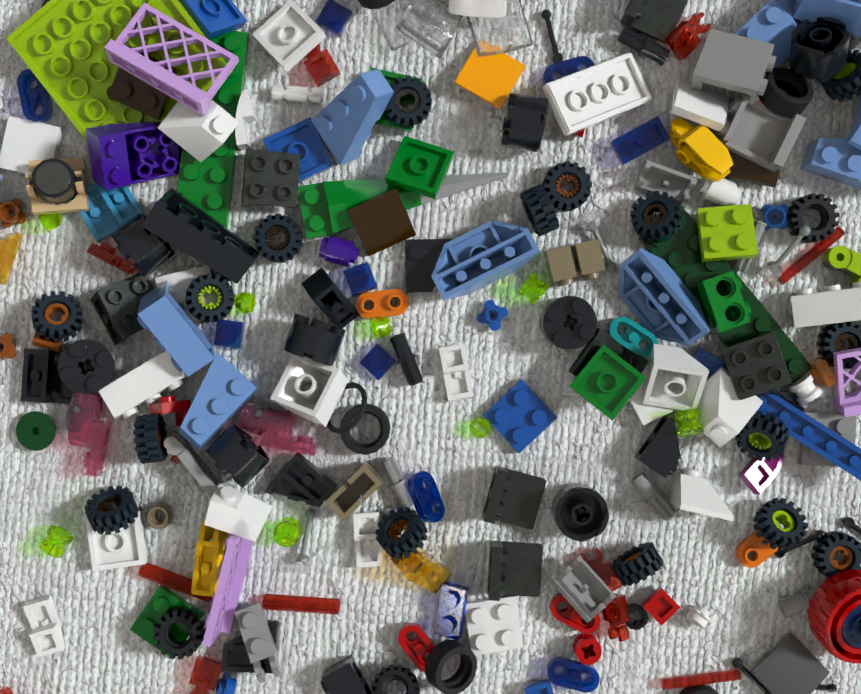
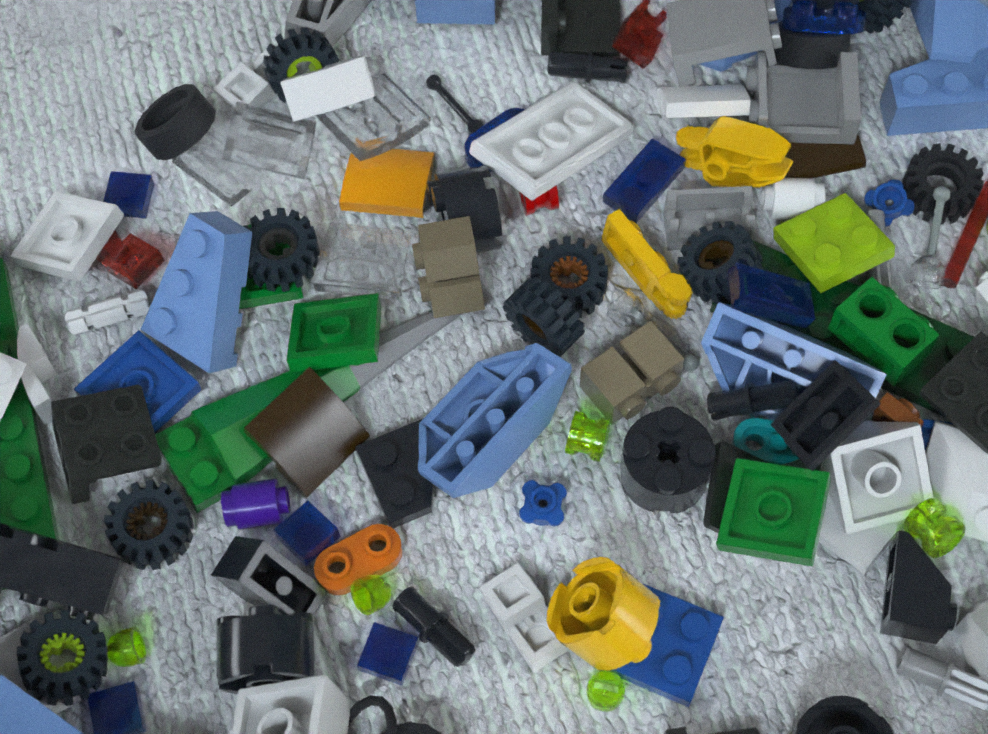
camera: 20 degrees left, 25 degrees down
(494, 396) = (604, 615): none -> yellow brick
(499, 157) = (450, 266): none -> dark tan piece
(614, 198) = (646, 266): none -> yellow hinge
(631, 307) = (751, 399): none -> black axle
(662, 343) = (824, 415): none -> black slope
(671, 255) = (770, 295): none -> clear blue plate
(703, 354) = (896, 411): none -> dark orange plate
(806, 89) = (840, 19): none -> clear blue plate

